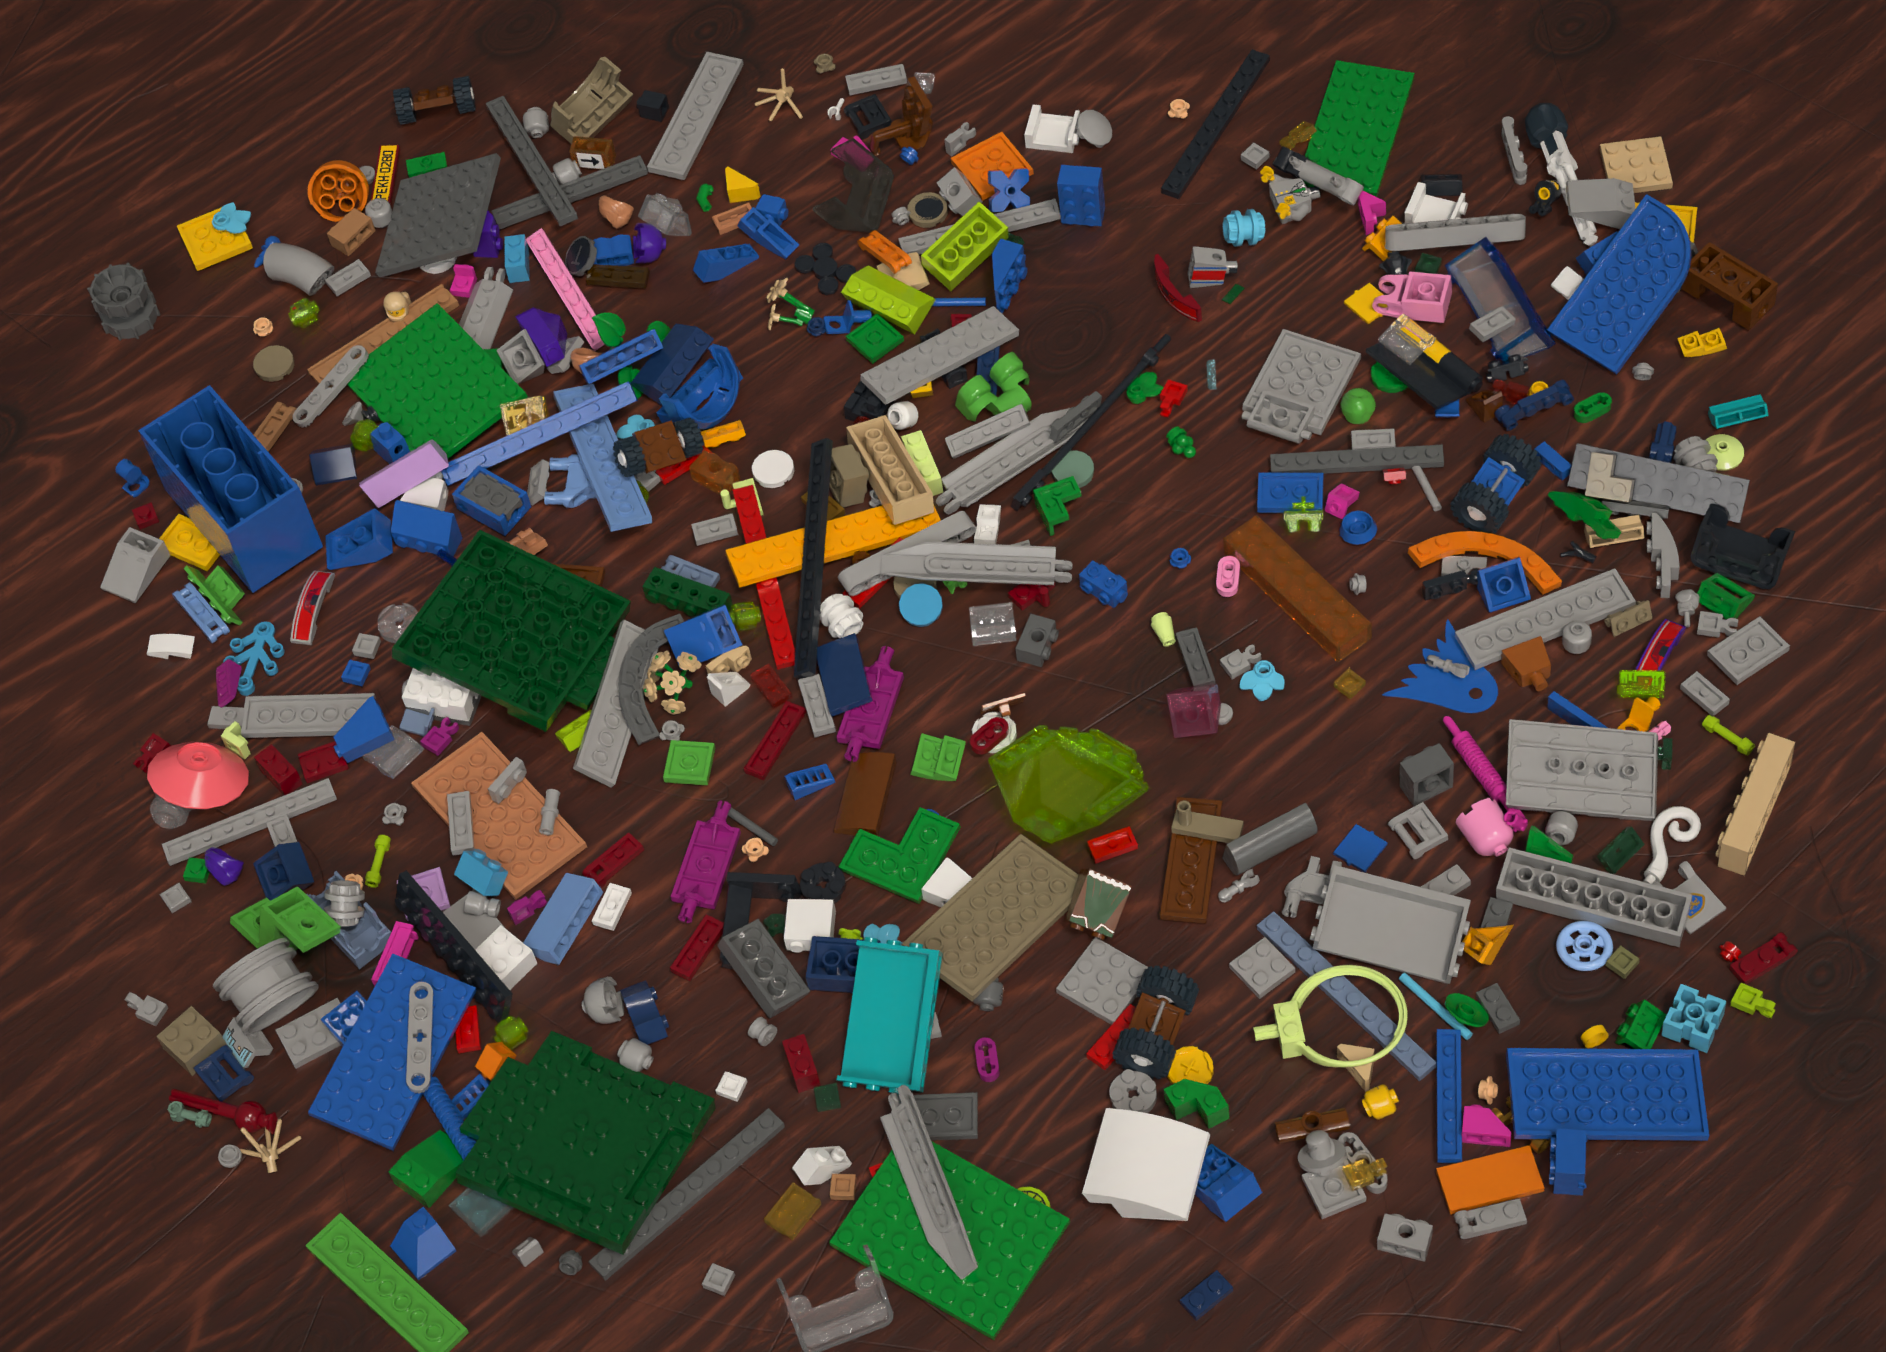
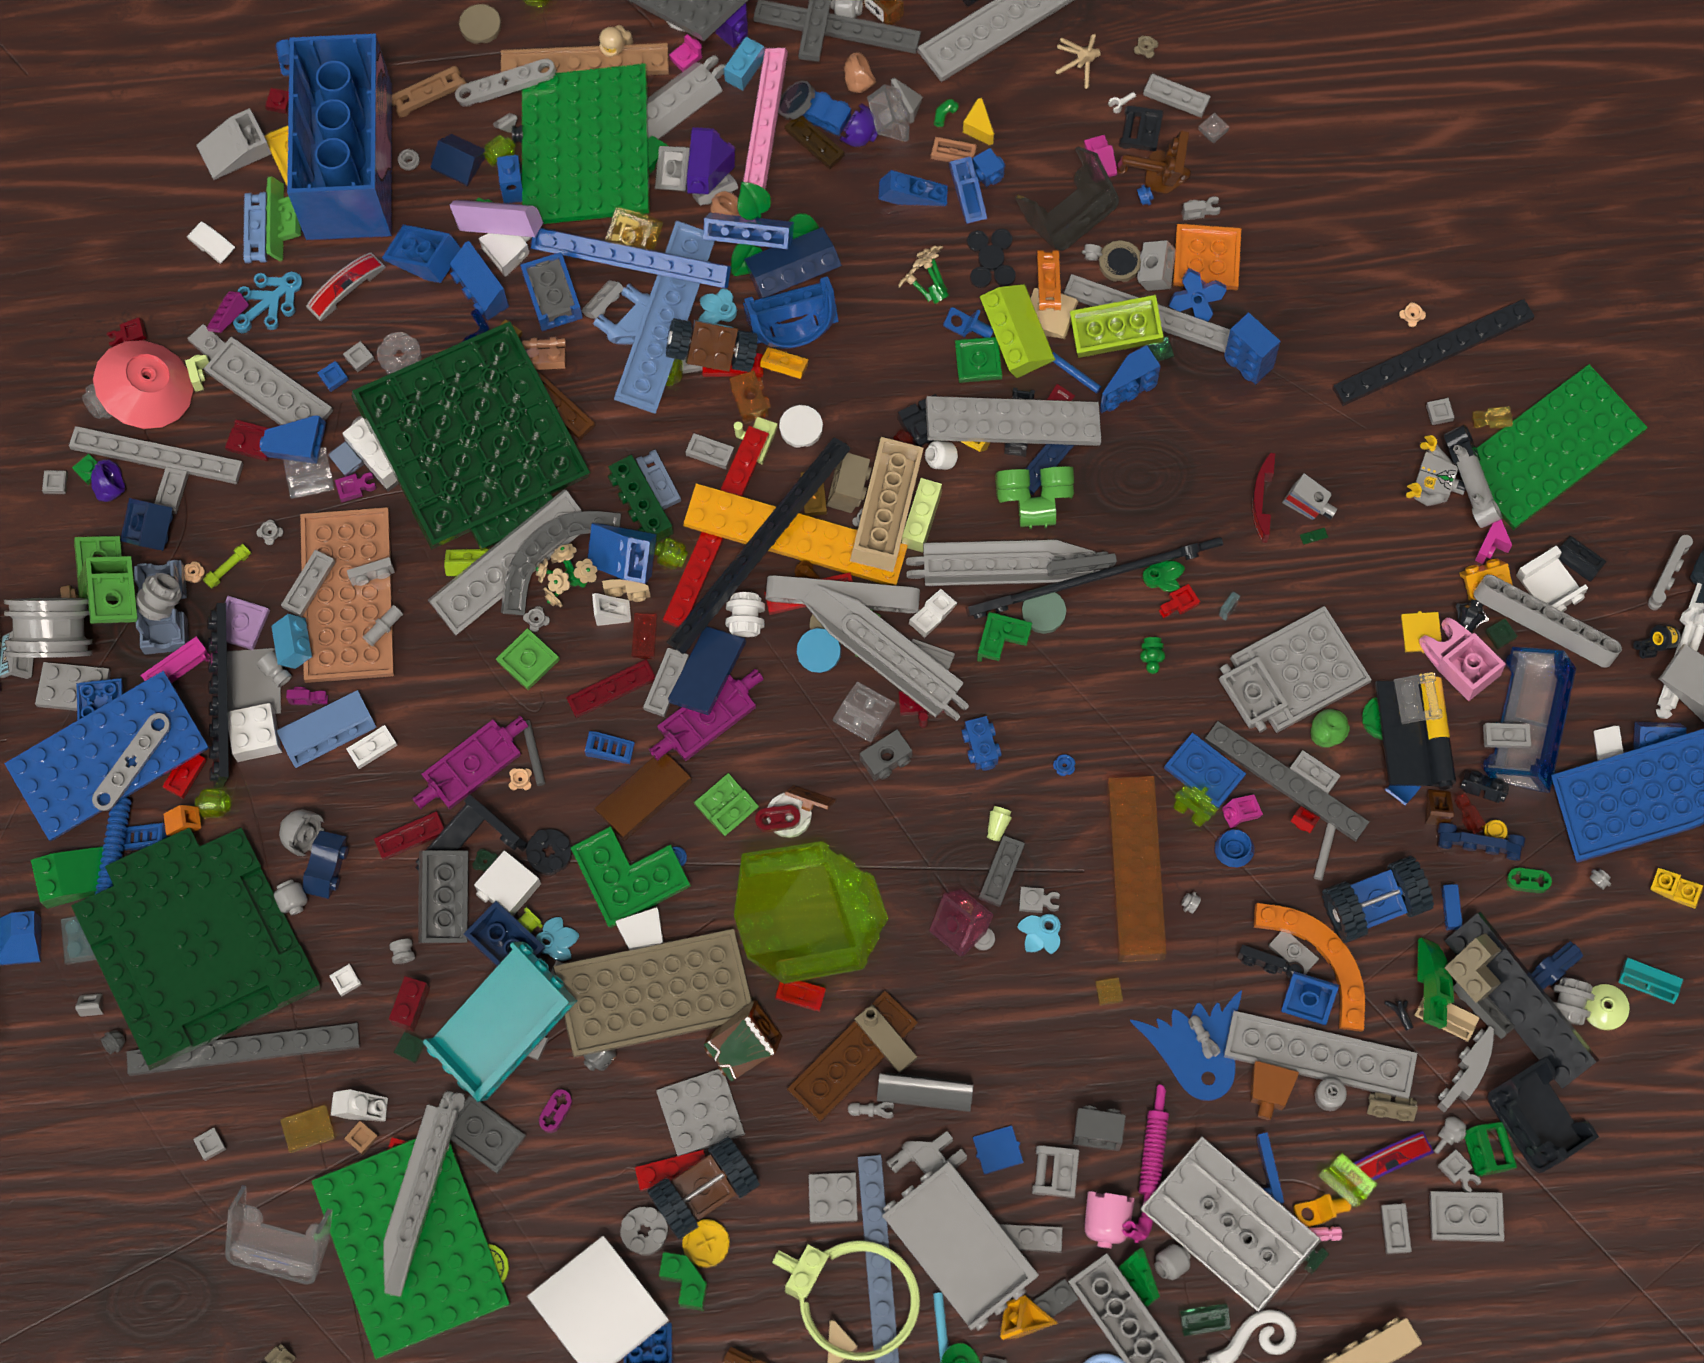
camera: 30 degrees right, 15 degrees up
(278, 770) = (208, 425): dark red brick -> none
(613, 859) = (404, 705): dark red plate -> none
(816, 326) = (939, 307): dark blue plate -> none
(987, 431) = (998, 524): light grey plate -> none
(1051, 131) = (1286, 258): white panel -> none
(1094, 128) = (1322, 282): light grey dish -> none
(1228, 578) = (1089, 813): bright pink plate -> none
(1246, 227) = (1370, 479): medium azure piece -> none
(1743, 745) = (1388, 1302): lime bar -> none

